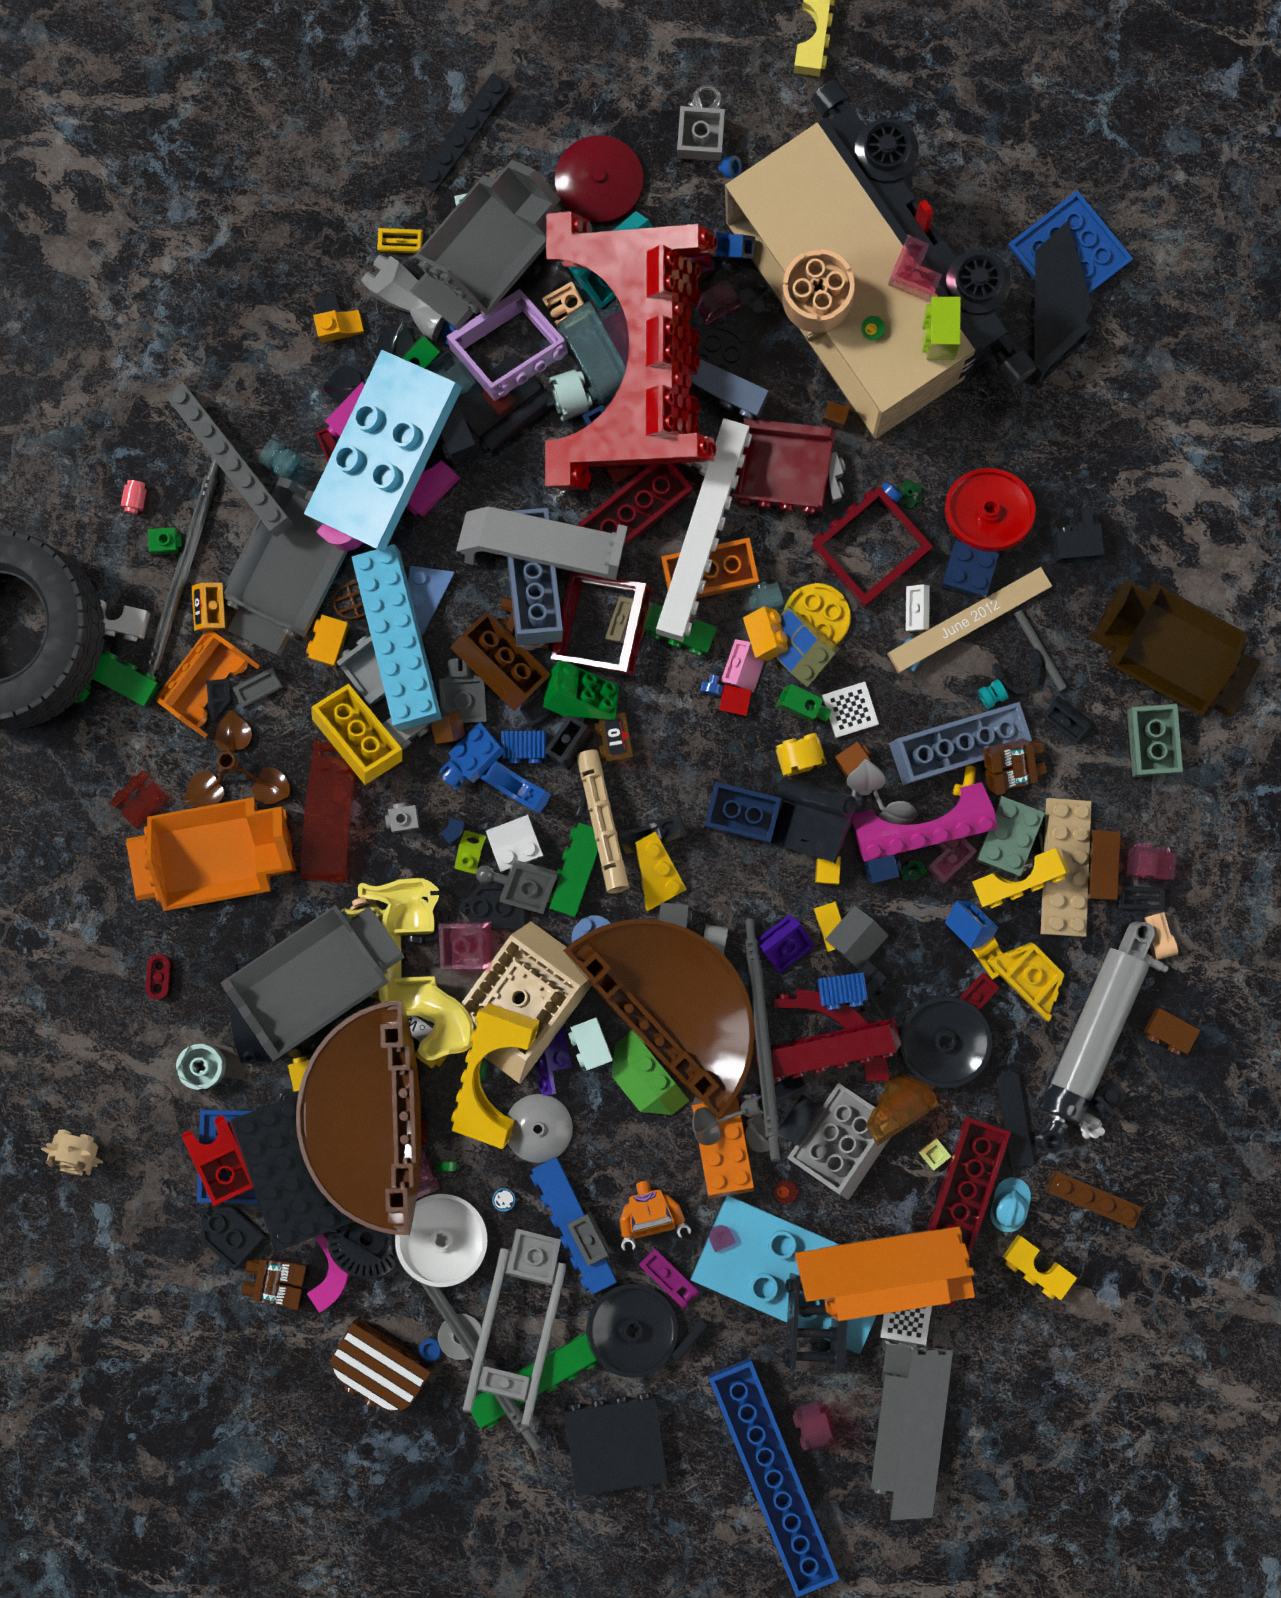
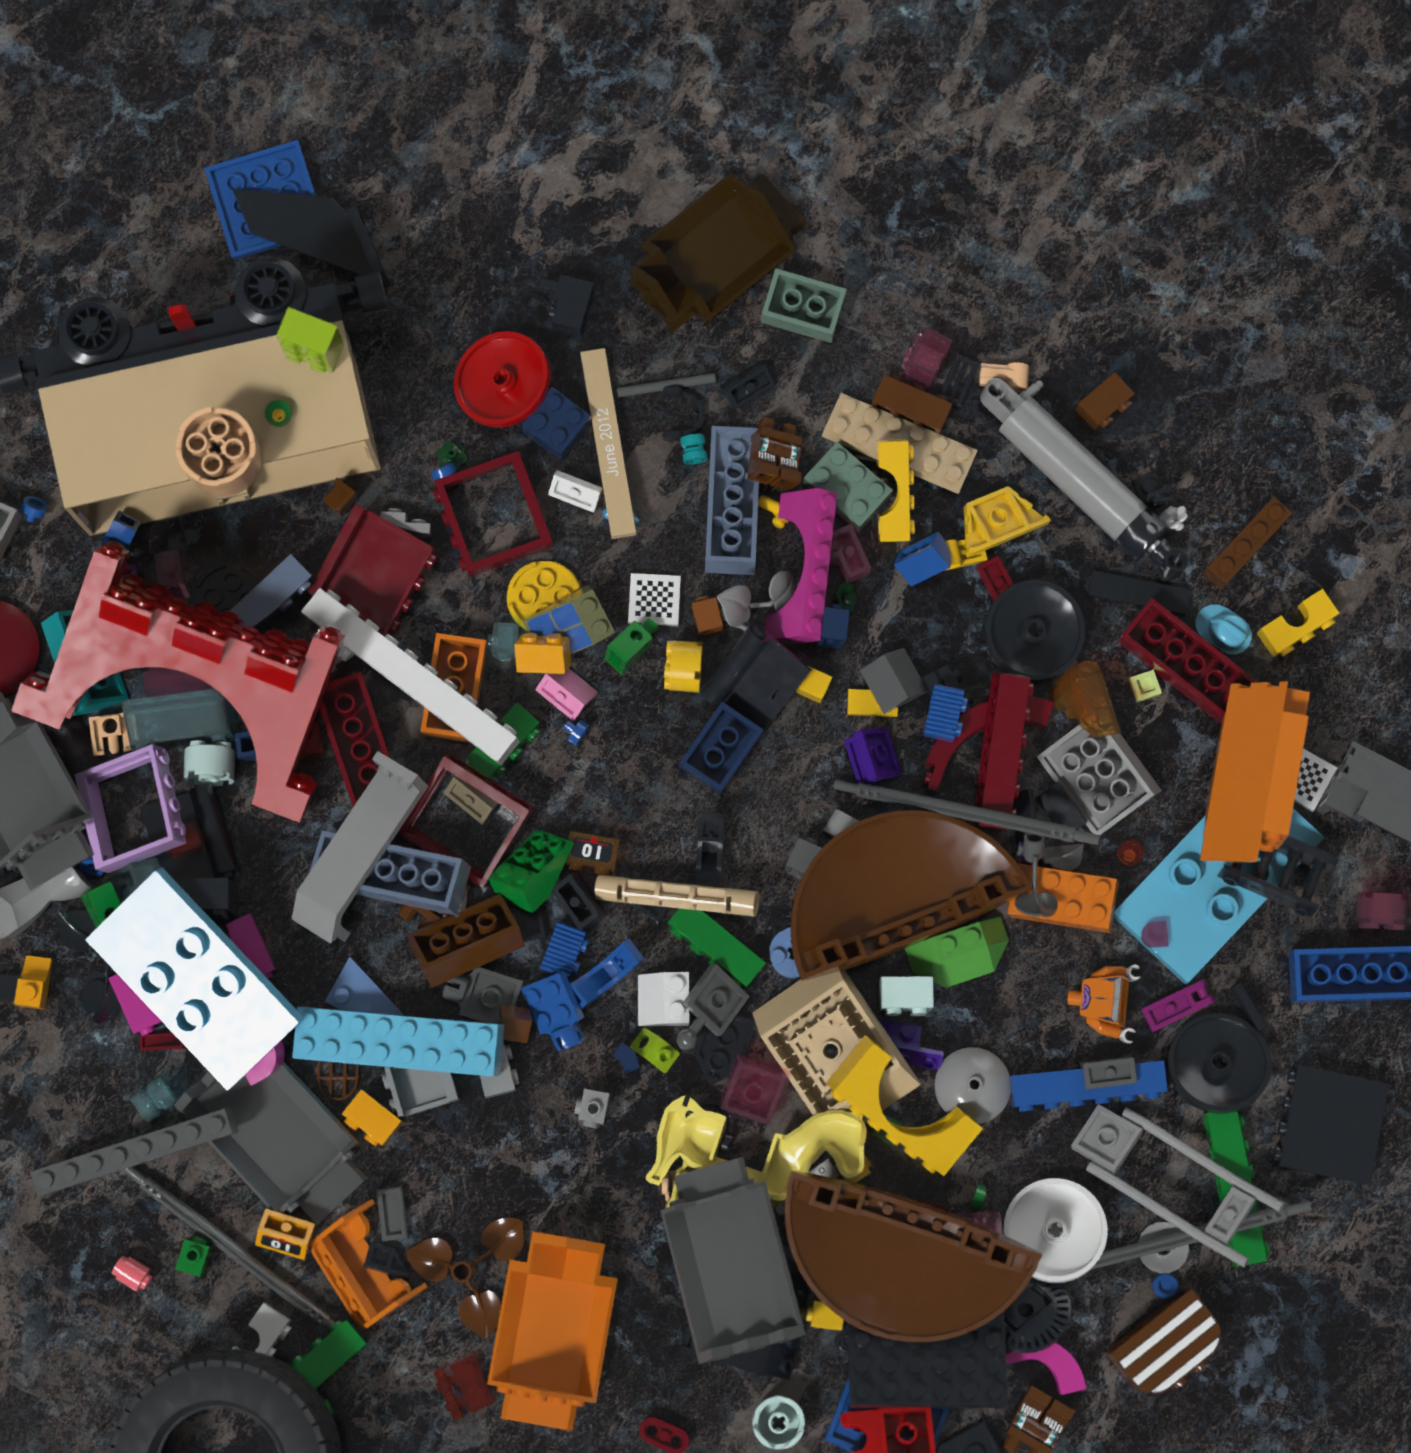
camera: 75 degrees left, 5 degrees down
(327, 816) = (557, 1184): clear red windscreen -> none
(356, 734) = (485, 1122): yellow brick -> none
(503, 1199) = (1034, 1149): tile -> none
(657, 871) = (750, 859): yellow wing -> none
(735, 700) = (599, 713): red piece -> none
(911, 275) = (239, 353): clear pink brick -> none

